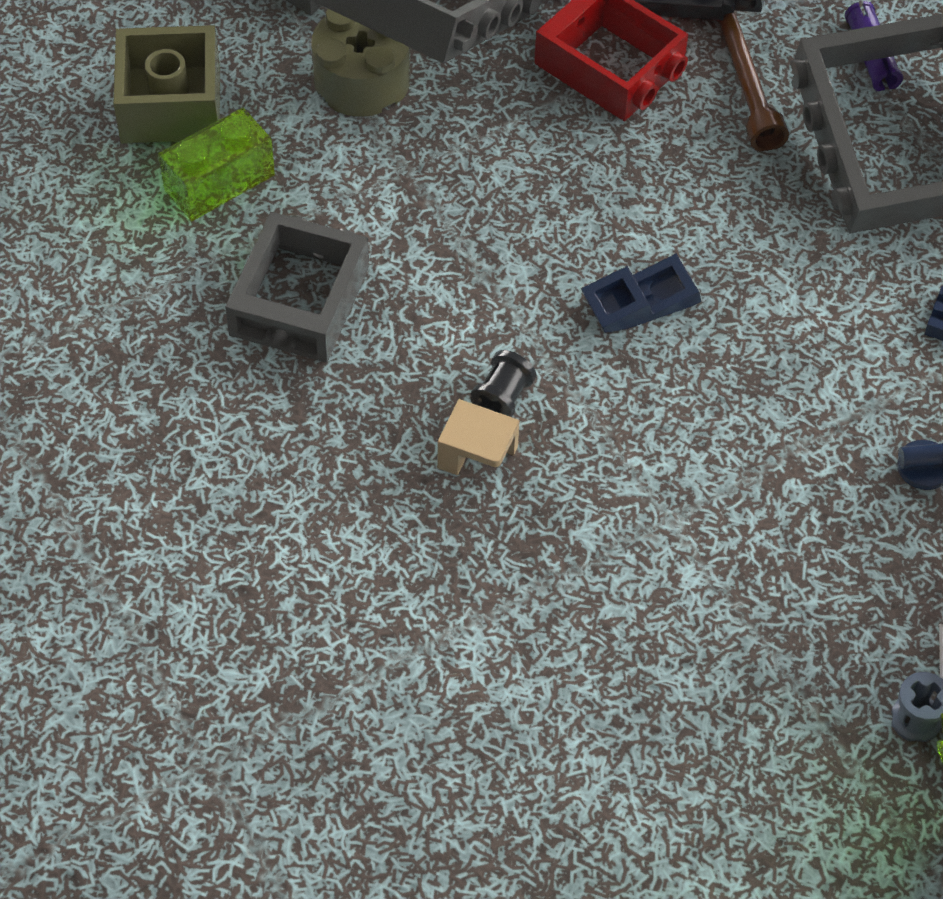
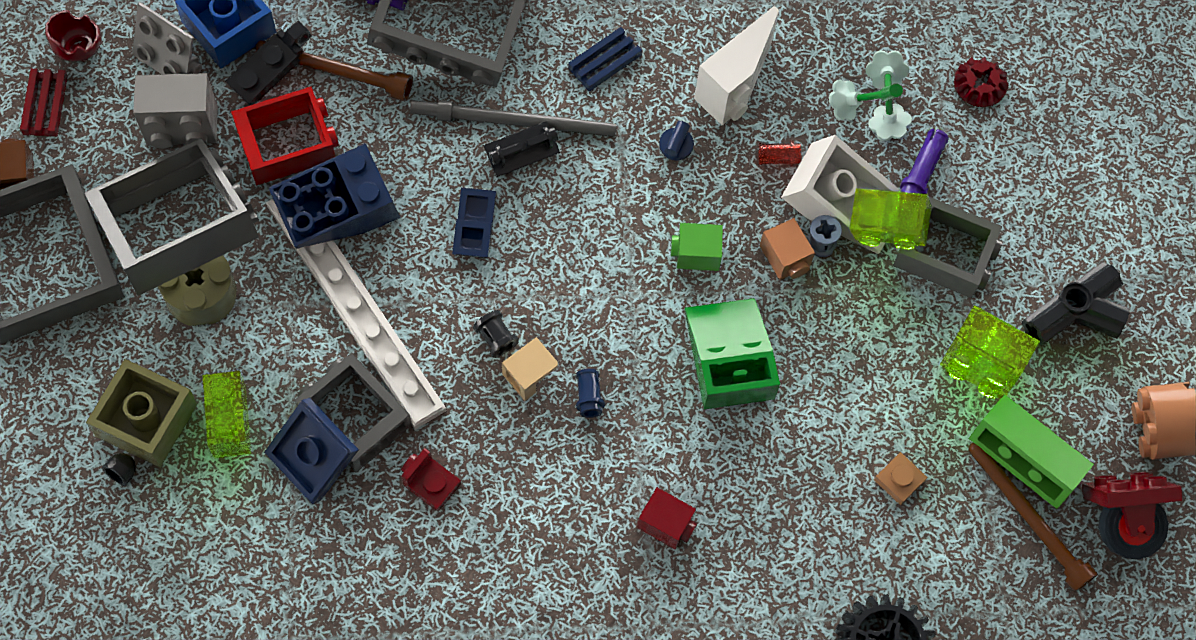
camera: 65 degrees left, 10 degrees up
(96, 106) = (120, 468): none -> black hinge
(218, 263) = (311, 451): none -> dark blue tile
(262, 408) = (429, 479): none -> dark red bracket
(365, 703) = (667, 519): none -> dark red brick
(440, 234) = (369, 328): none -> white tile
(479, 535) = (590, 400): none -> dark blue pin
(566, 136) = (334, 199): none -> dark blue slope
(656, 670) = (732, 354): none -> green slope
(773, 195) = (445, 111): none -> dark grey bar
(779, 294) = (522, 148): none -> black hinge
(789, 556) = (698, 246): none -> bright green brick
(865, 669) = (787, 250): none -> nougat brick

